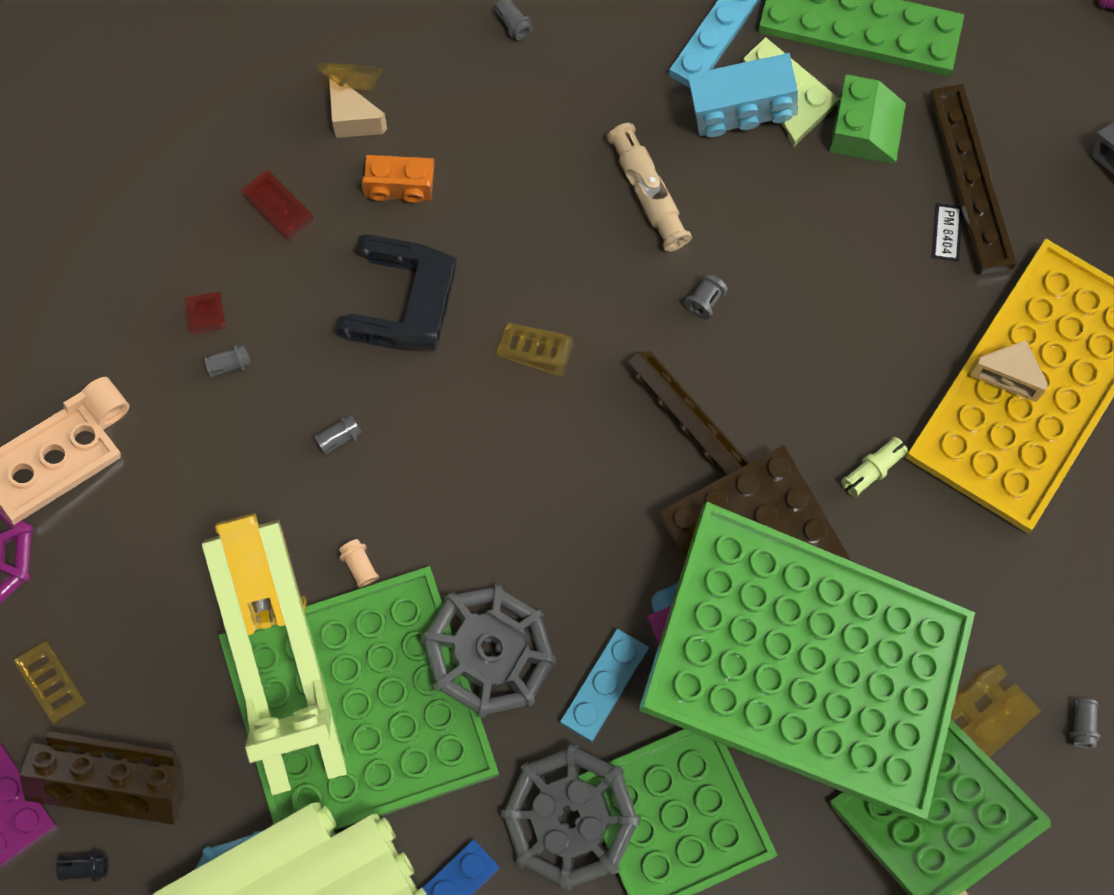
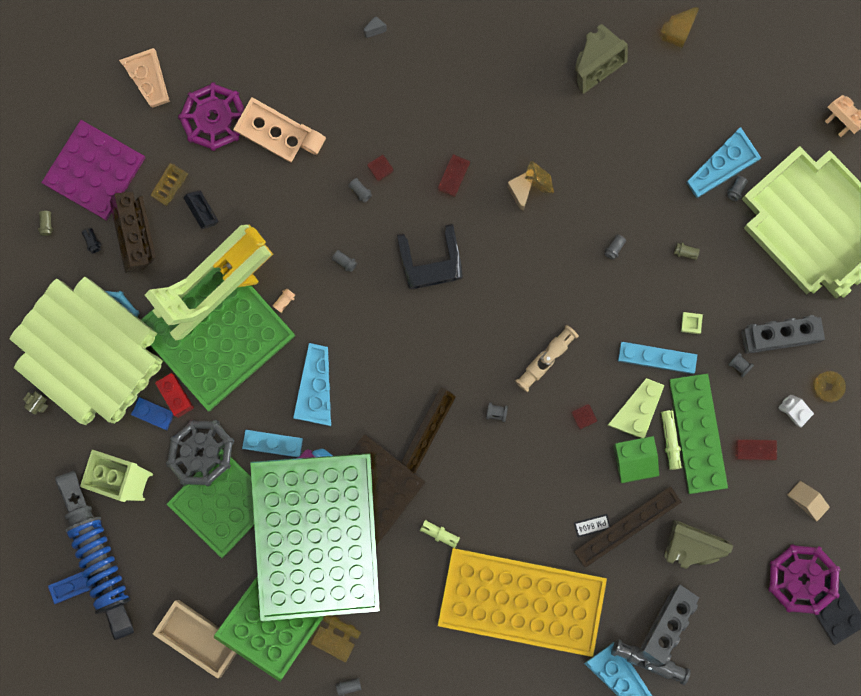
camera: 75 degrees right, 10 degrees up
(125, 641) = (201, 209): none -> black plate
(398, 178) = (496, 228): orange bracket -> none
(444, 822) = (174, 395): none -> red brick
(470, 657) = (273, 374): dark grey plate -> none
(543, 362) = (432, 353): clear yellow slope -> none
(545, 578) = (313, 393): none -> medium azure wing
(744, 95) = (614, 387): medium azure brick -> none
(766, 172) = (584, 416): none -> clear red plate
(857, 62) = (672, 448): none -> yellowish green pin
(1013, 371) = (518, 585): tan slope -> none
(1042, 90) = (694, 546): none -> olive piece

